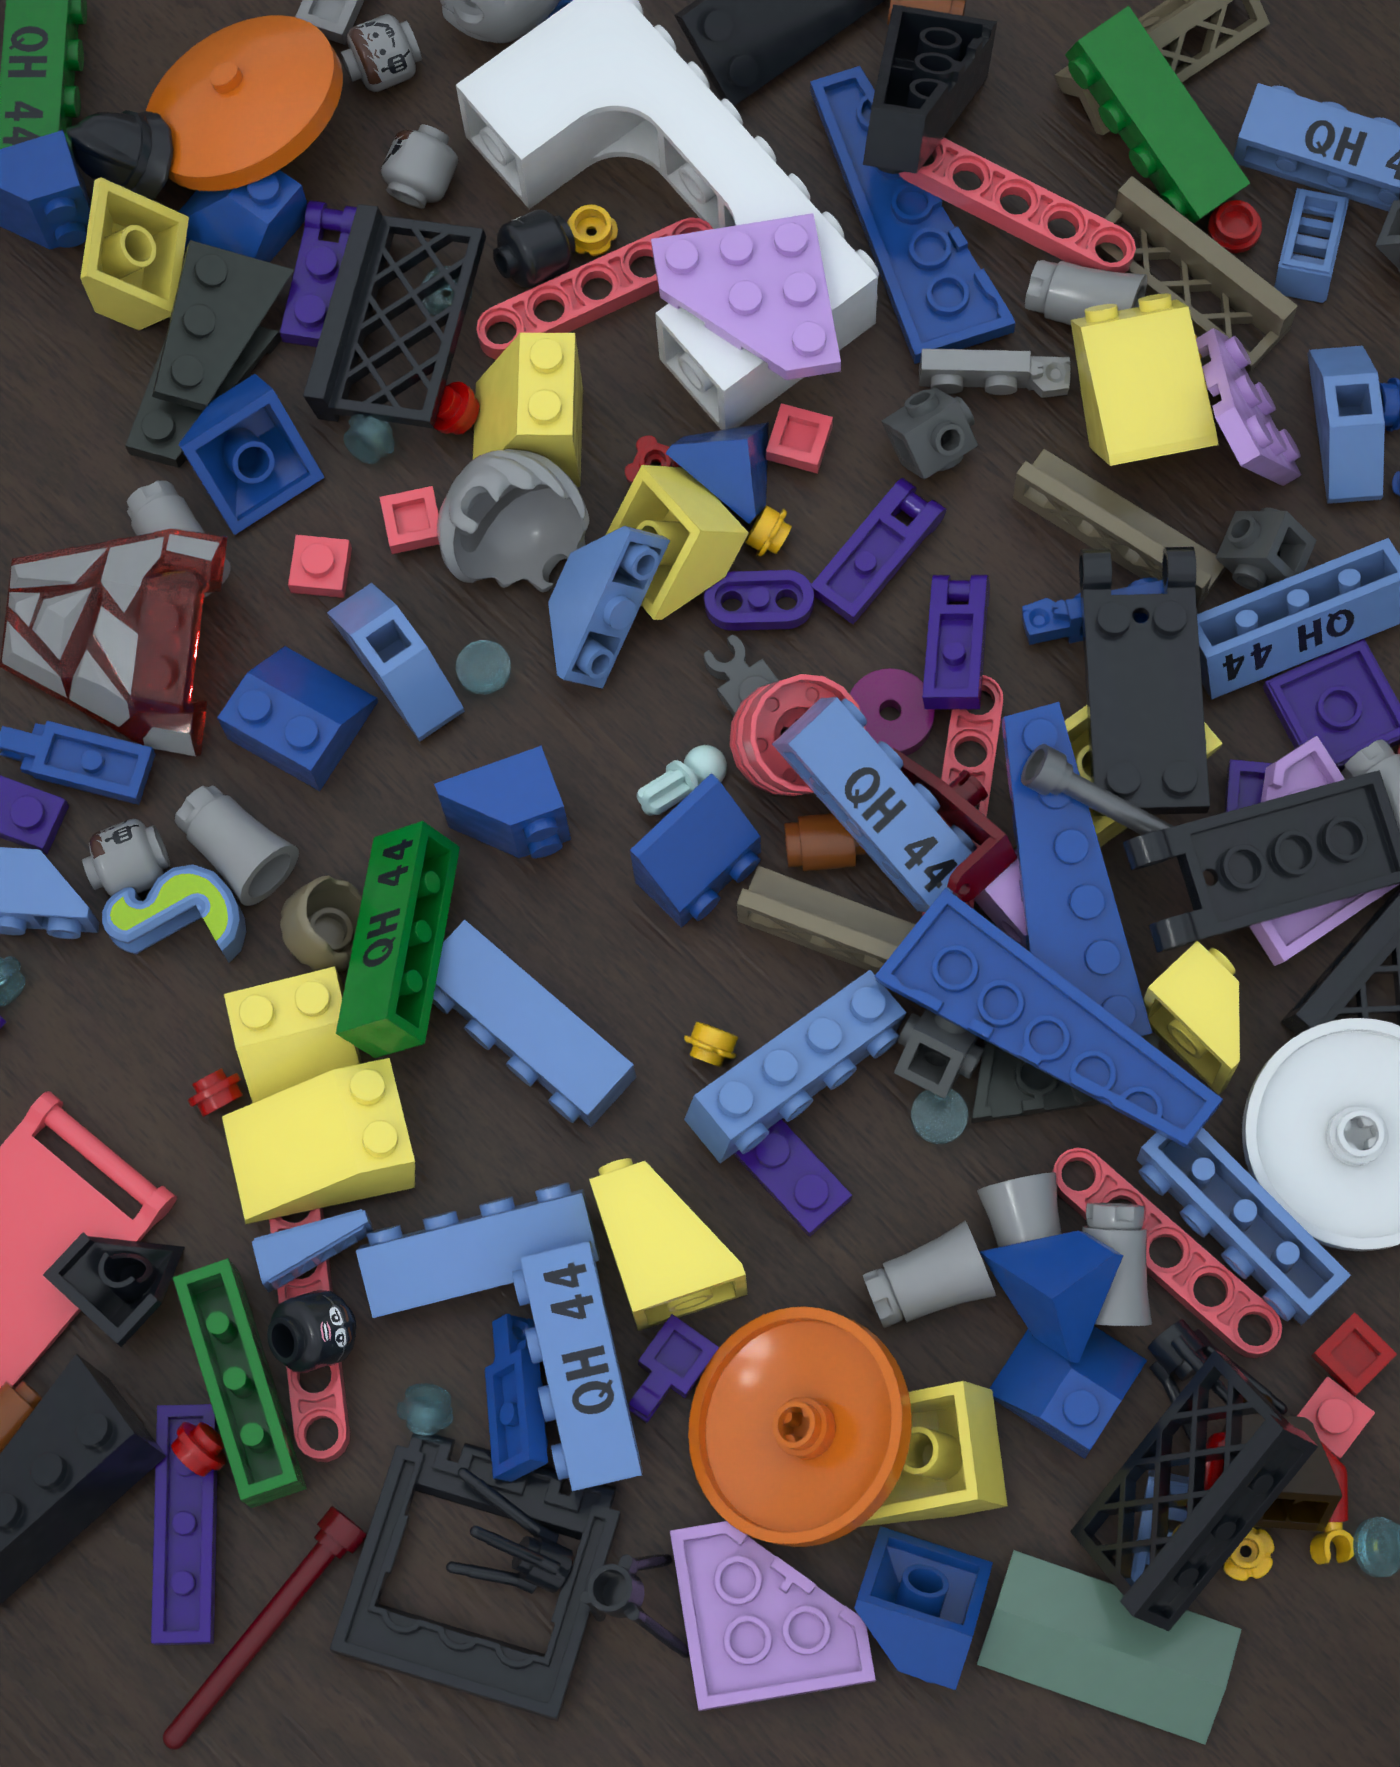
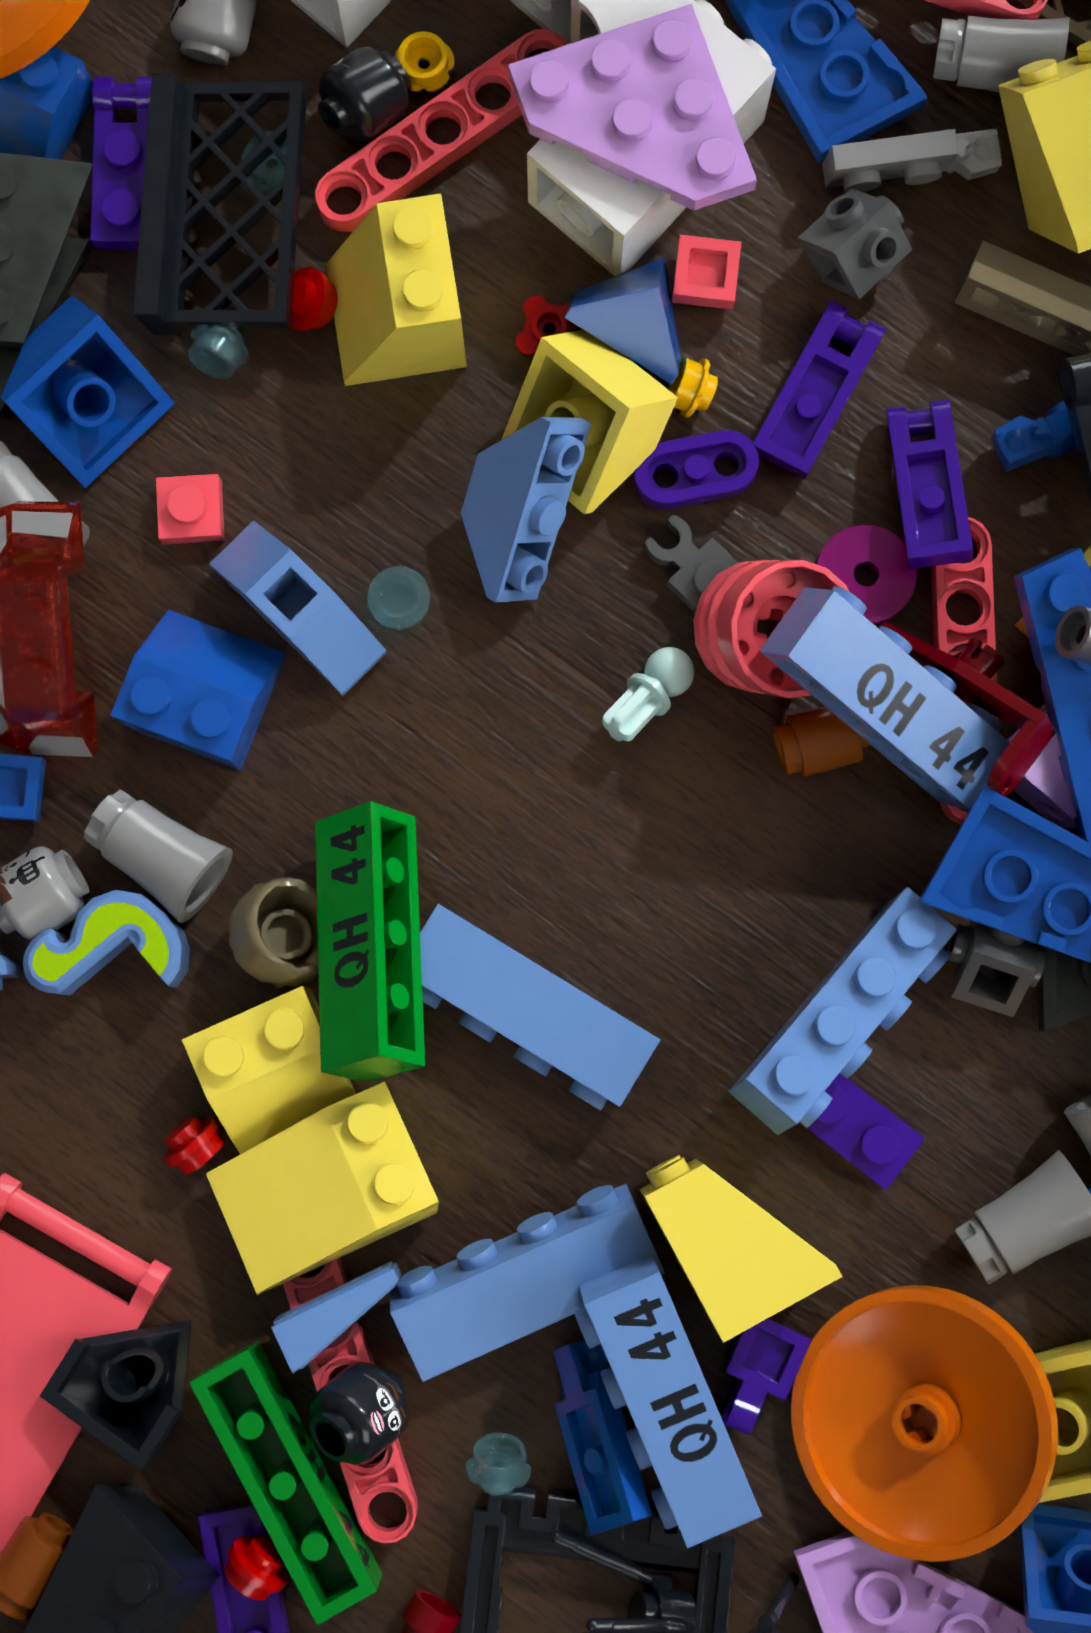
camera: 15 degrees left, 10 degrees up
(410, 519) = (285, 439): coral plate -> none
(508, 805) = (465, 761): blue slope -> none
(510, 519) = (402, 423): light grey piece -> none
(696, 852) = (685, 780): blue slope -> none
(711, 1044) = (737, 992): yellow plate -> none
(820, 920) = (844, 830): dark tan fence -> none
(939, 1118) = (1003, 1036): clear light blue plate -> none

